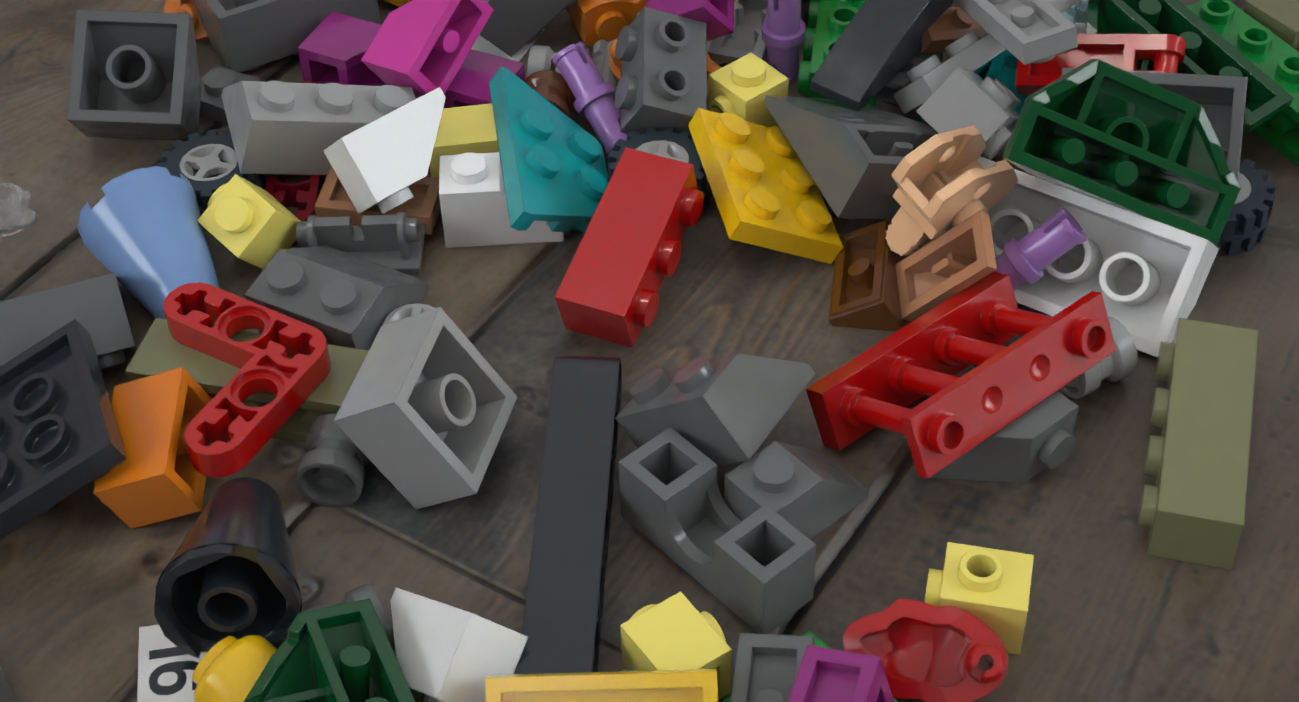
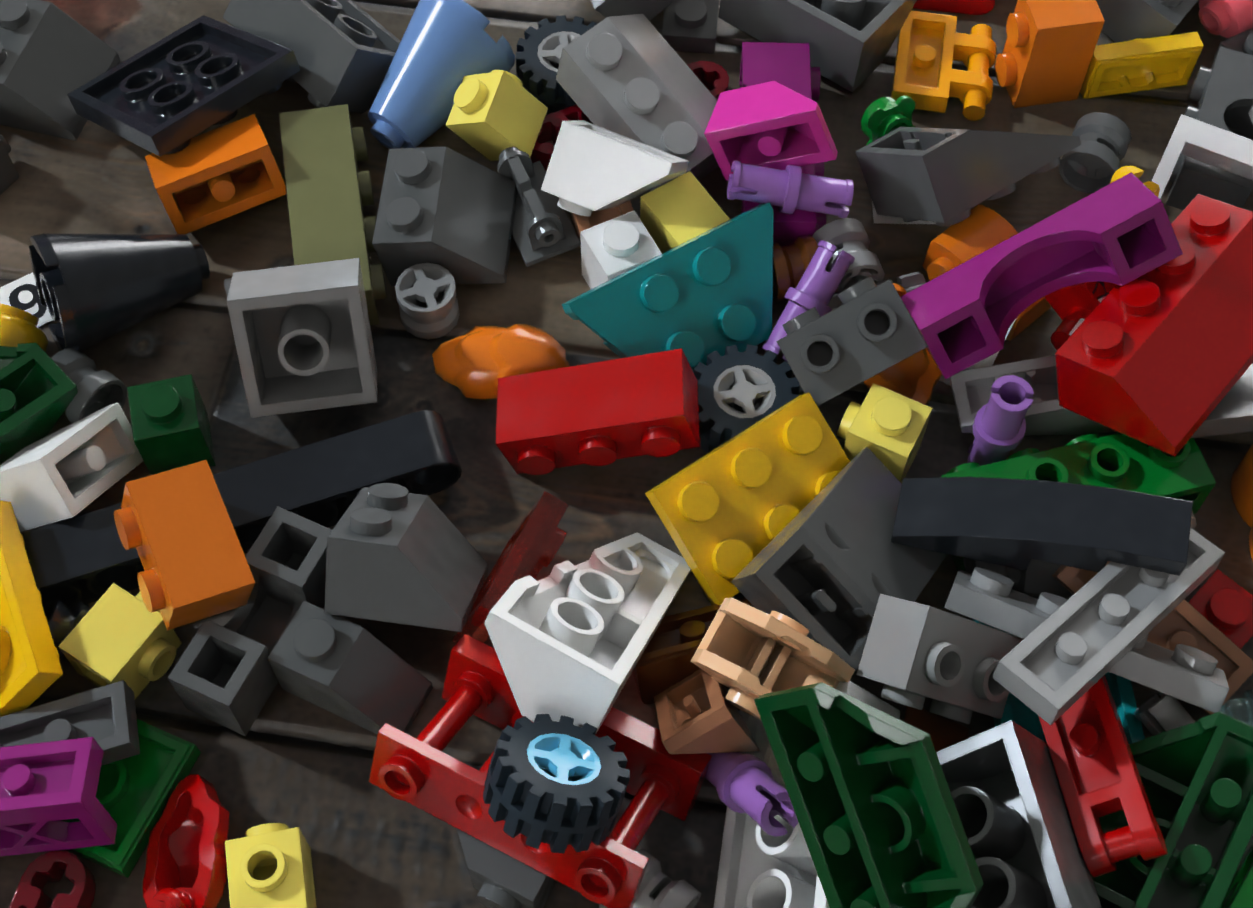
camera: 65 degrees right, 15 degrees up
(262, 368) = (300, 205): red beam -> none
(446, 555) = (170, 424): none -> dark green brick
(489, 54) = (790, 189): none -> medium lavender pin
(516, 313) = (493, 352): none -> orange arm
(630, 531) = (184, 545): none -> orange brick
(769, 318) = (525, 553): none -> clear red plate
(880, 289) = (583, 627): none -> white wedge
(1012, 312) = (556, 783): none -> black wheel

